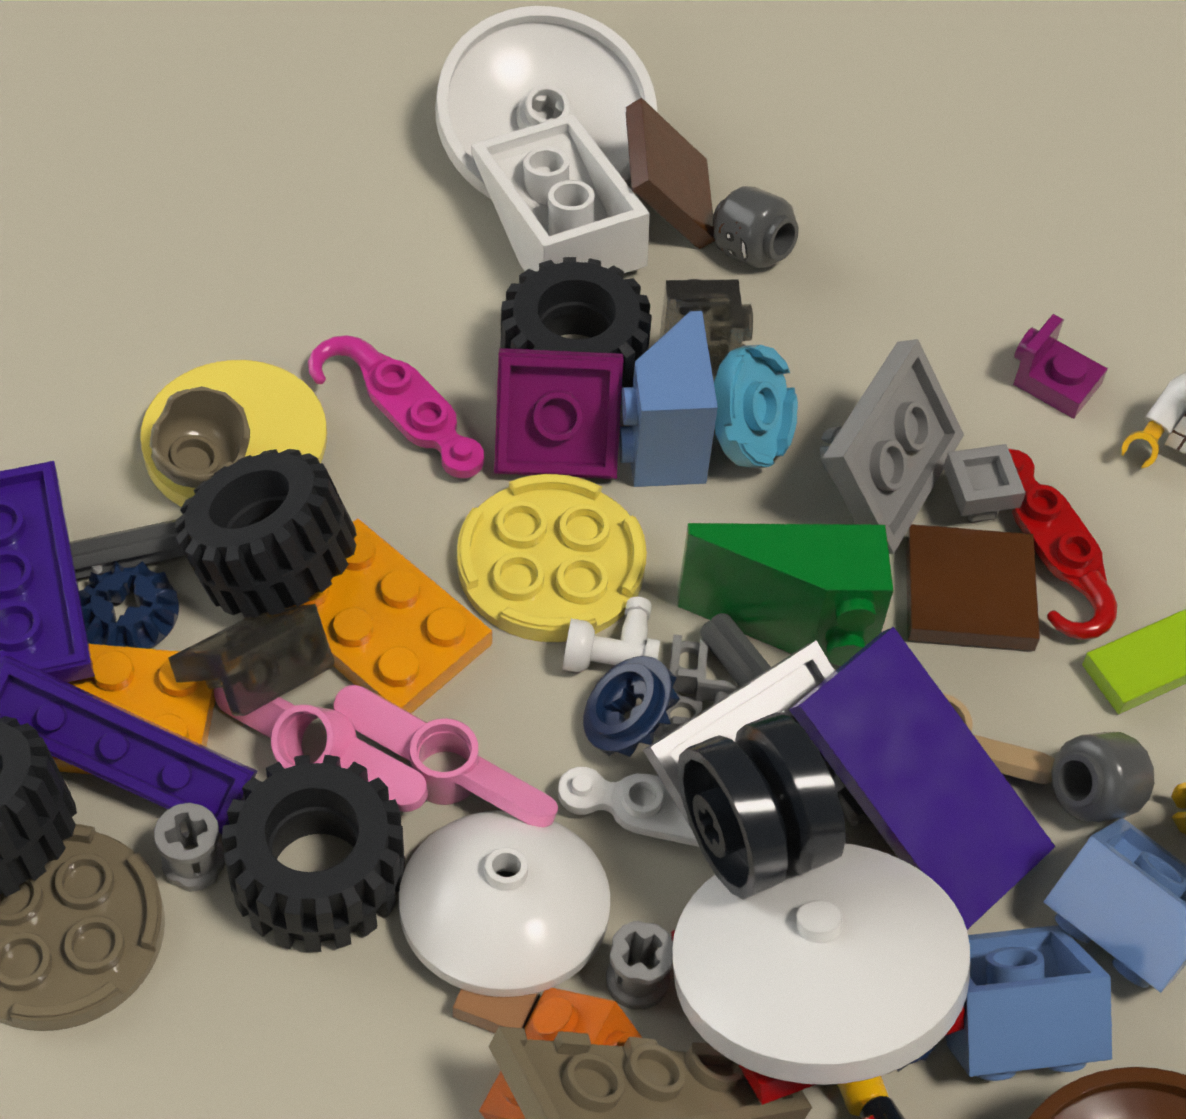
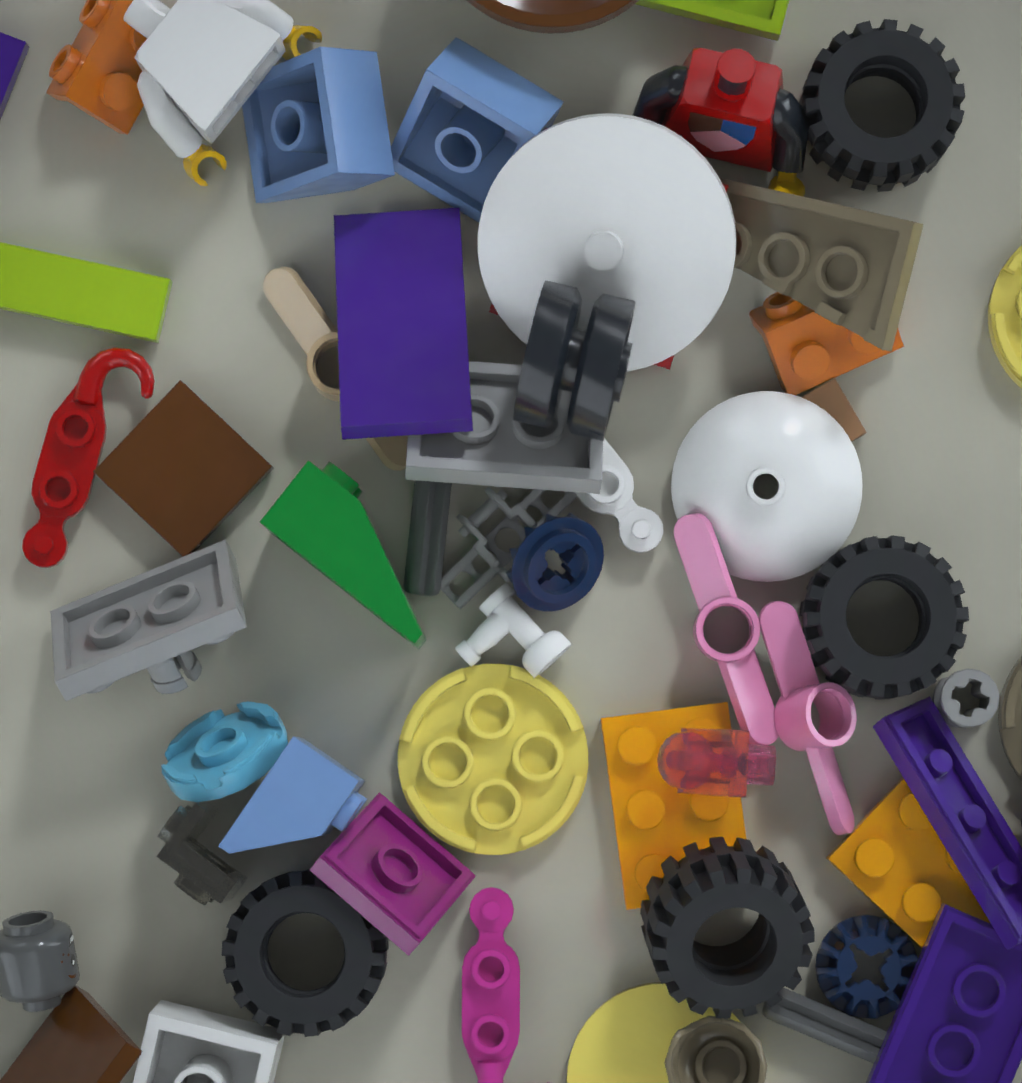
camera: 135 degrees left, 30 degrees up
(258, 657) = (814, 820): clear smoke bracket -> none
(367, 622) = (715, 762): none -> clear pink hips
(639, 944) = (731, 347): light grey bush -> none
(984, 481) = (92, 542): light grey tile -> none
(1102, 776) = (254, 231): dark grey head -> none

